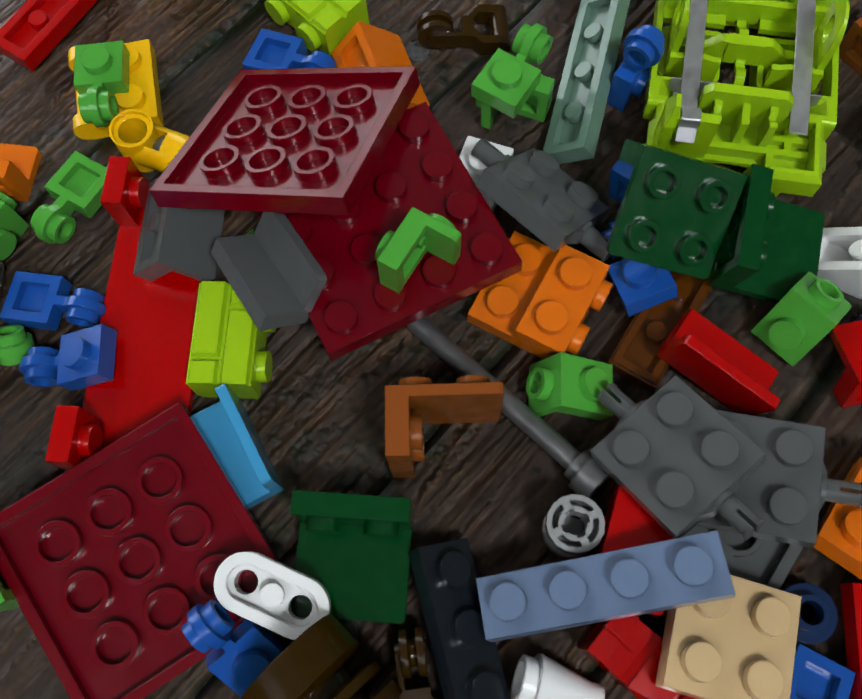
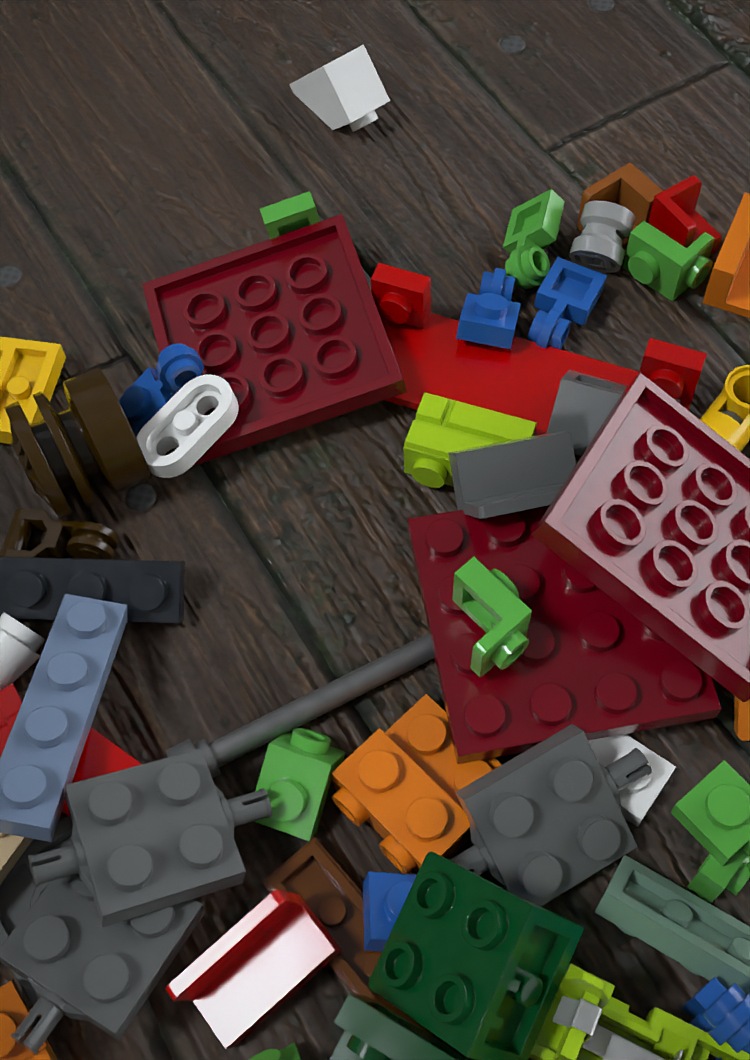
camera: 105 degrees right, 10 degrees down
(75, 187) = (662, 316): bright green plate -> none
(238, 447) = (353, 439): dark azure panel -> none
(357, 553) = (206, 514): dark green bracket -> none
(421, 402) = (302, 578): dark orange bracket -> none
(565, 533) = (147, 735): light grey wheel -> none

